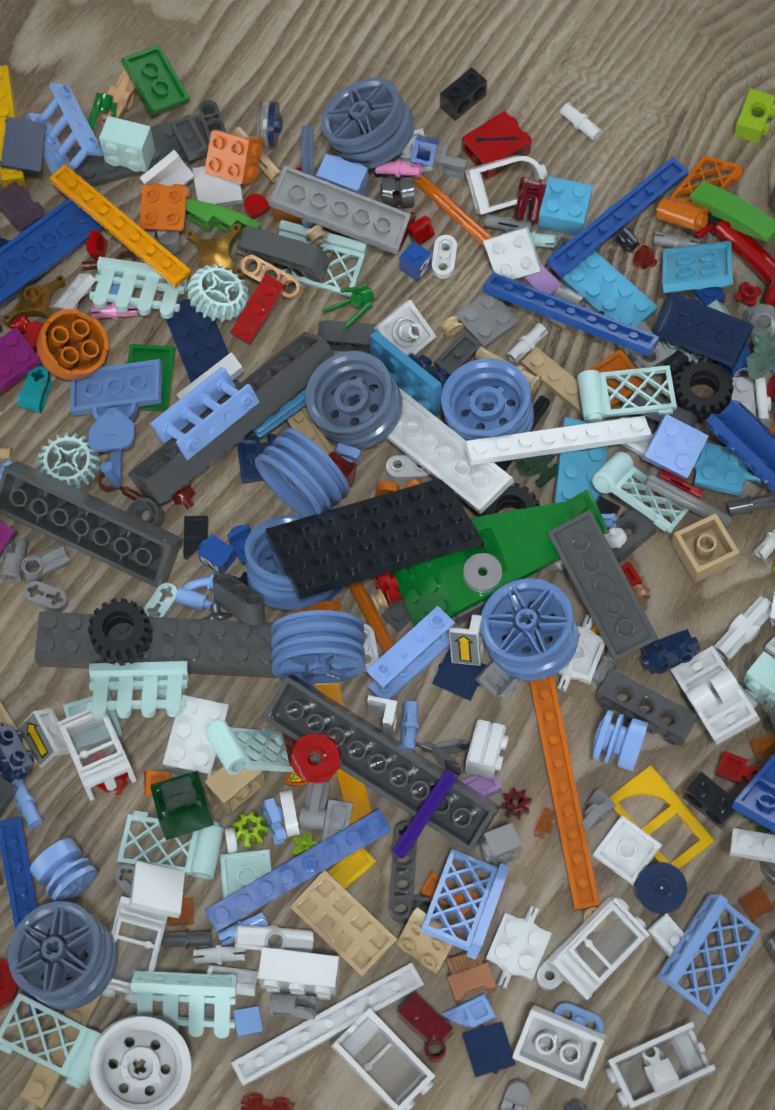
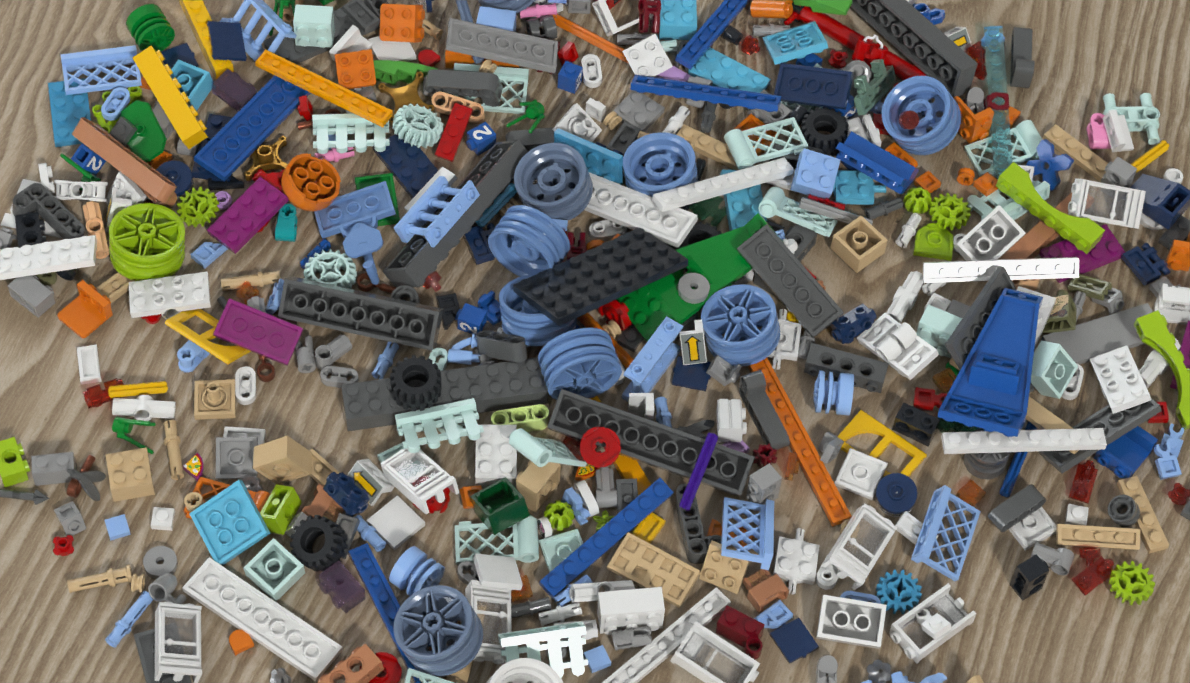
camera: 20 degrees left, 10 degrees down
(61, 796) = (396, 522): none -> white tile
(71, 426) = (323, 245): none -> blue axle
(80, 287) = (299, 144): white plate -> none
(103, 587) = (385, 360): none -> light blue pin
(248, 702) = (527, 413): none -> yellowish green beam
(289, 322) = (481, 138): none -> blue brick
(359, 492) = (575, 251): none -> dark red piece
(435, 308) = (595, 109): none -> white plate
(529, 746) = (753, 394): none -> dark grey beam
(568, 343) = (708, 117): none -> dark grey axle
(639, 1020) = (909, 591): none -> dark azure gear

